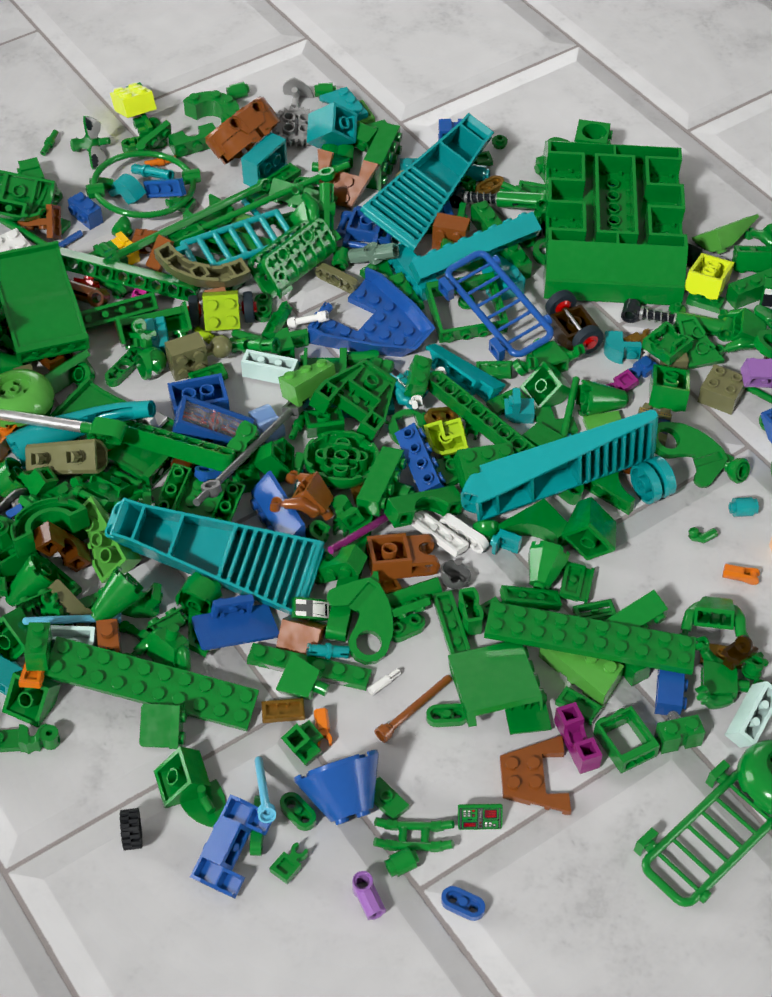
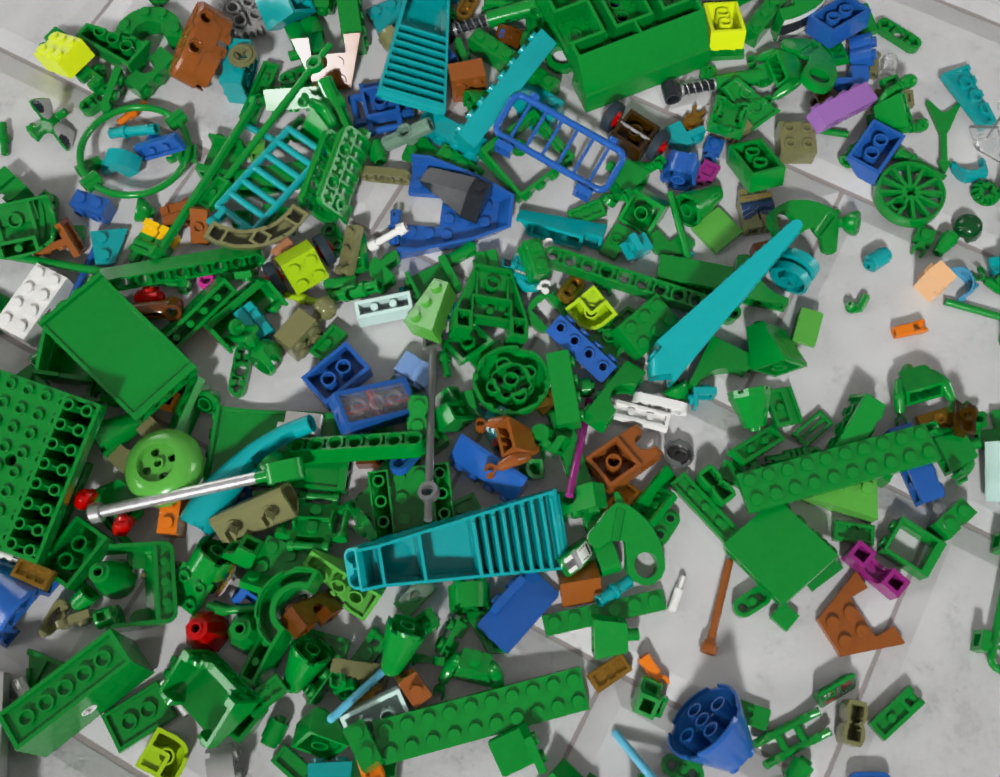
camera: 25 degrees left, 20 degrees up
(80, 239) = (107, 246): none -> teal wing
(166, 578) = (414, 598): none -> green plate
(172, 300) = (245, 274): none -> green plate
(177, 111) = (116, 48): none -> green wedge
(270, 316) = (350, 250): none -> olive plate
(274, 143) = (241, 50): none -> olive gear
(391, 311) = (460, 192): none -> black wedge
(470, 741) = (784, 618): none -> green tile
(475, 843) = (852, 718): none -> olive brick
(507, 212) = (509, 35): none -> reddish brown brick
(525, 861) = (895, 713): none -> green plate
(598, 365) = (680, 170): none -> blue brick
(636, 529) = (806, 327): none -> bright green panel

